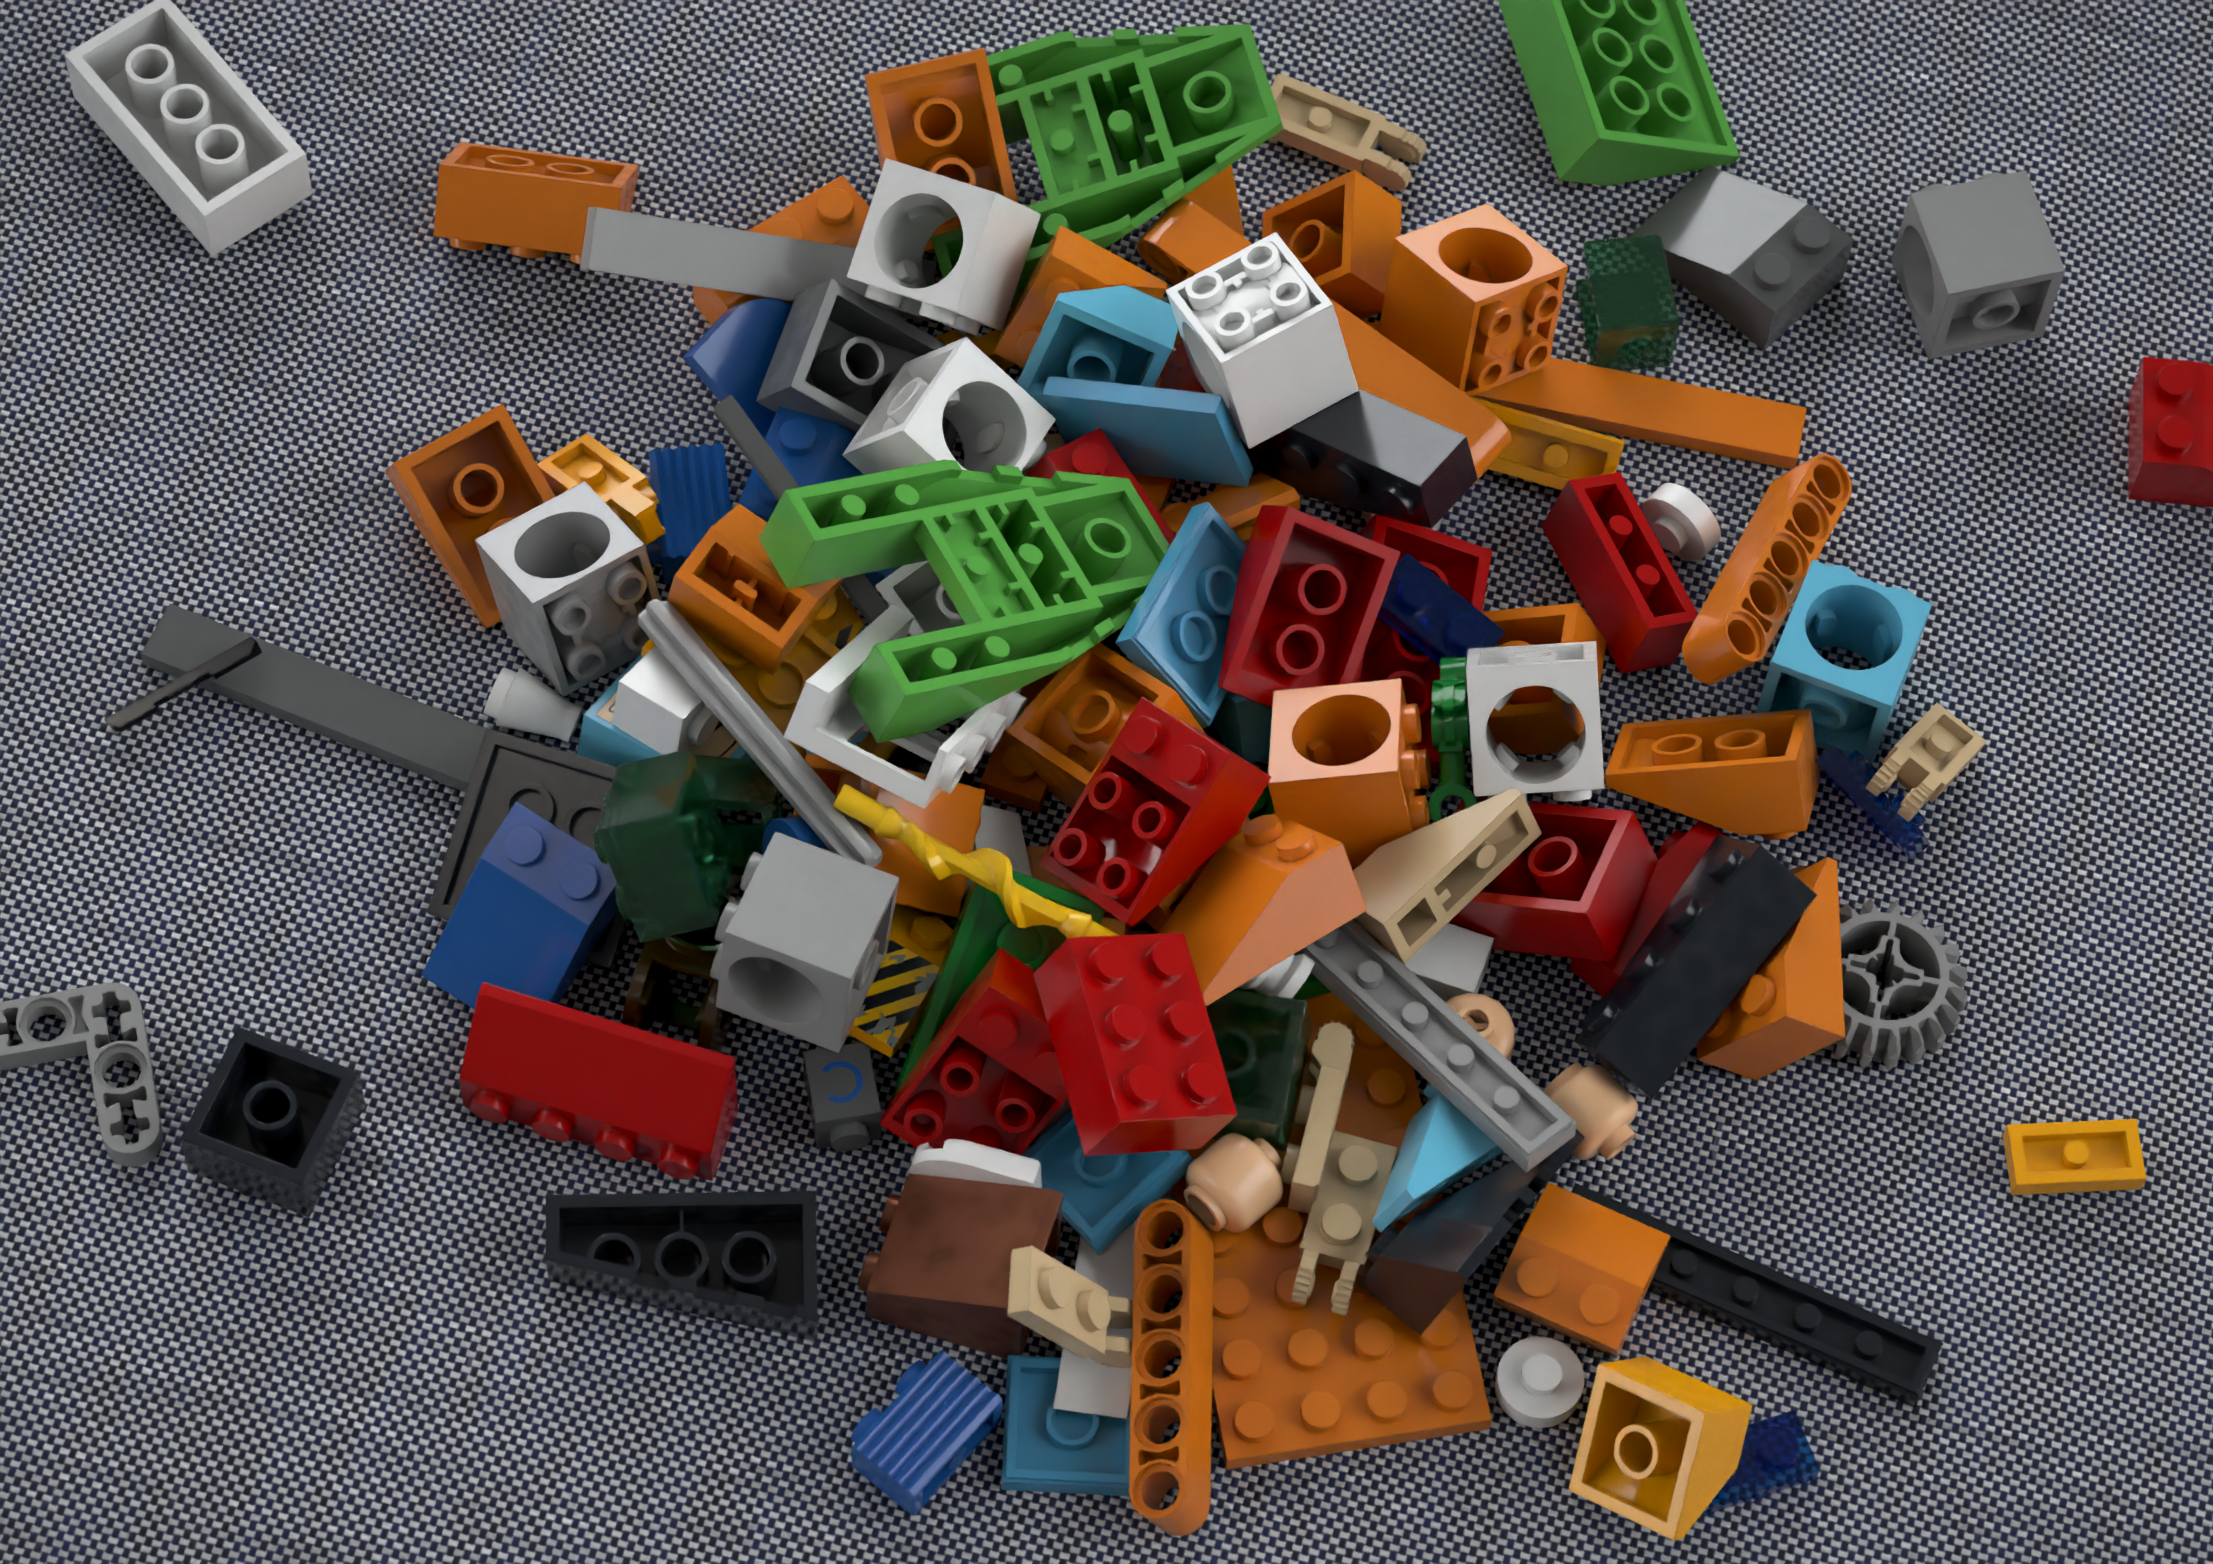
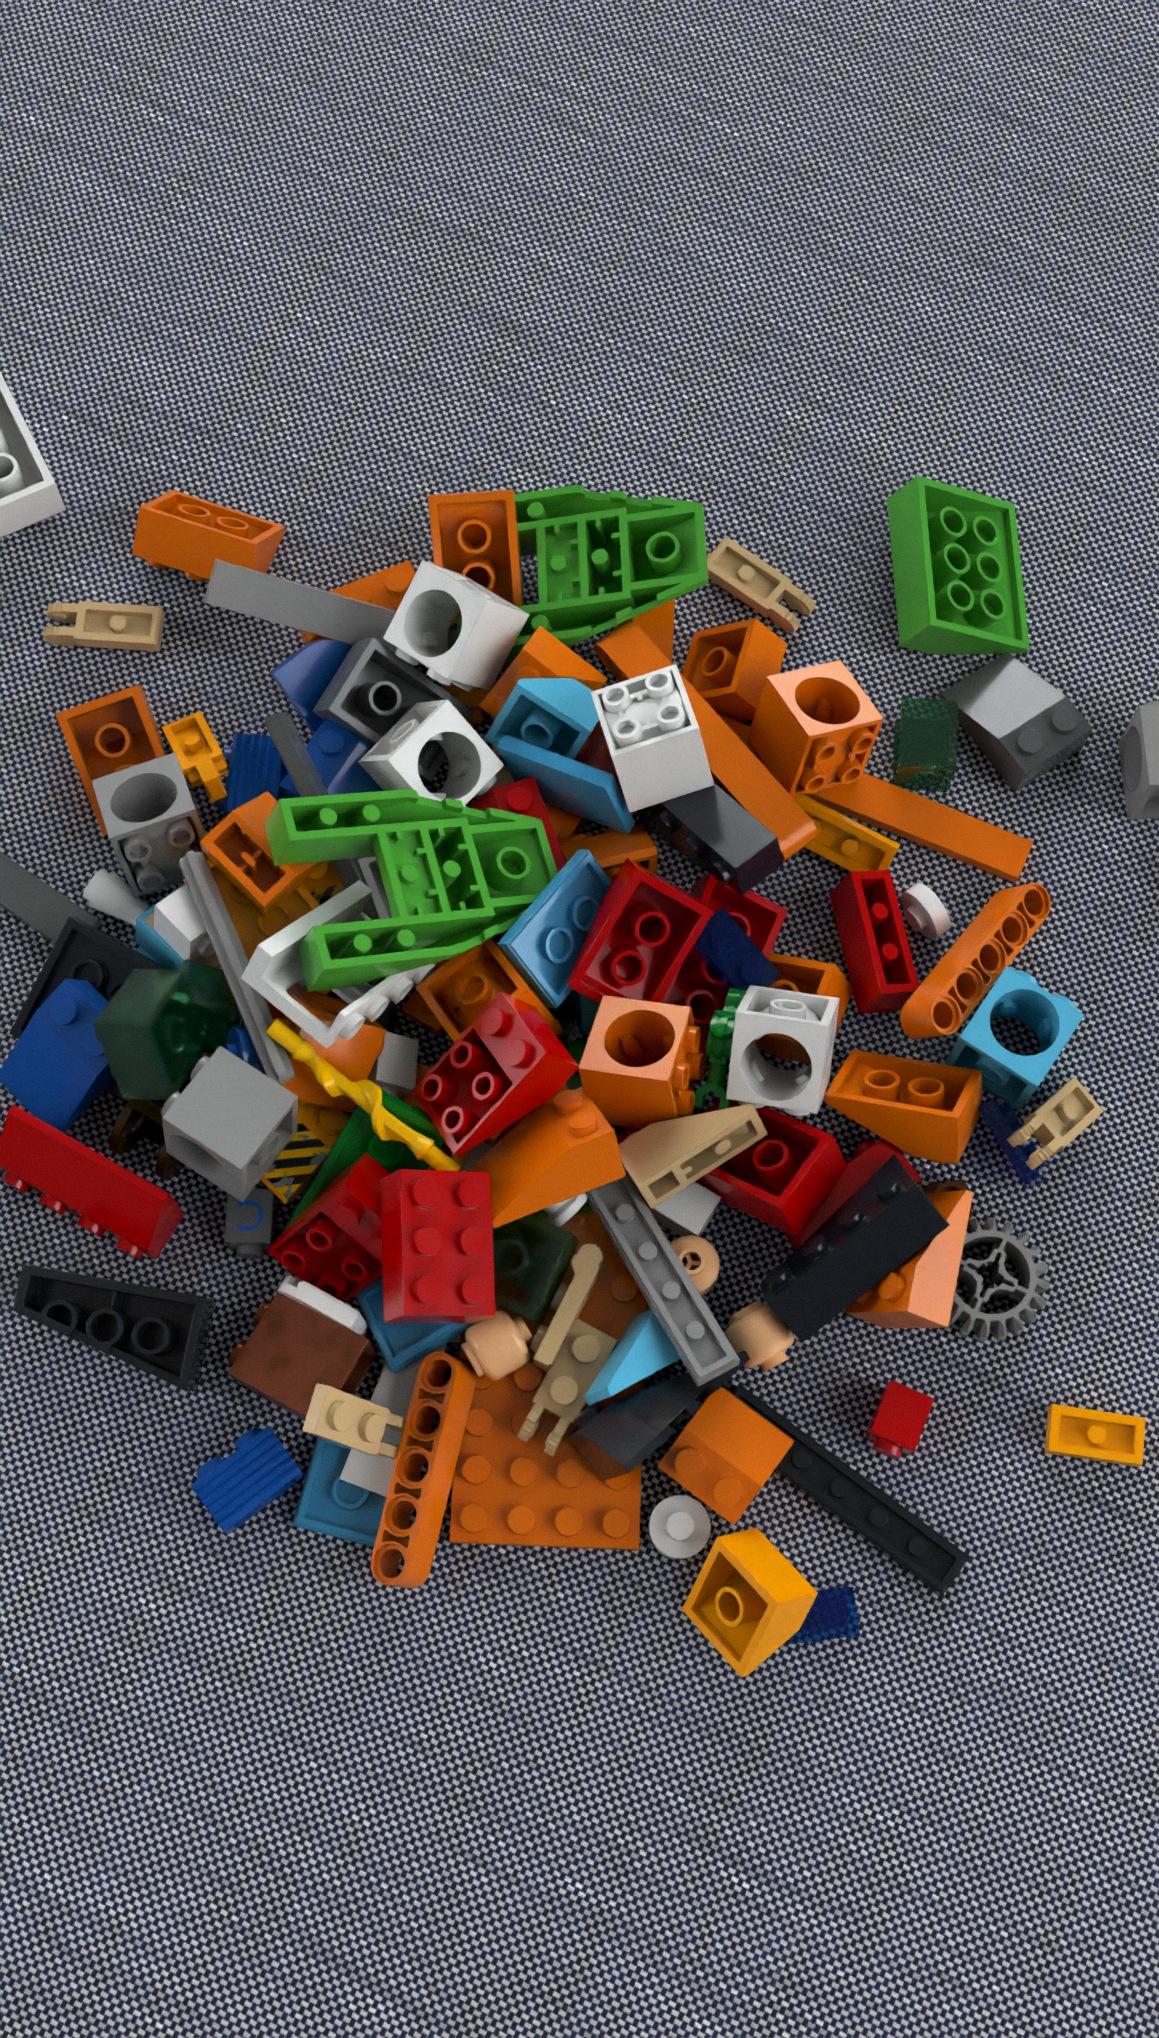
camera: 15 degrees right, 10 degrees up
(414, 342) = (106, 625): none -> tan hinge
(1804, 1184) = (898, 1420): none -> red brick

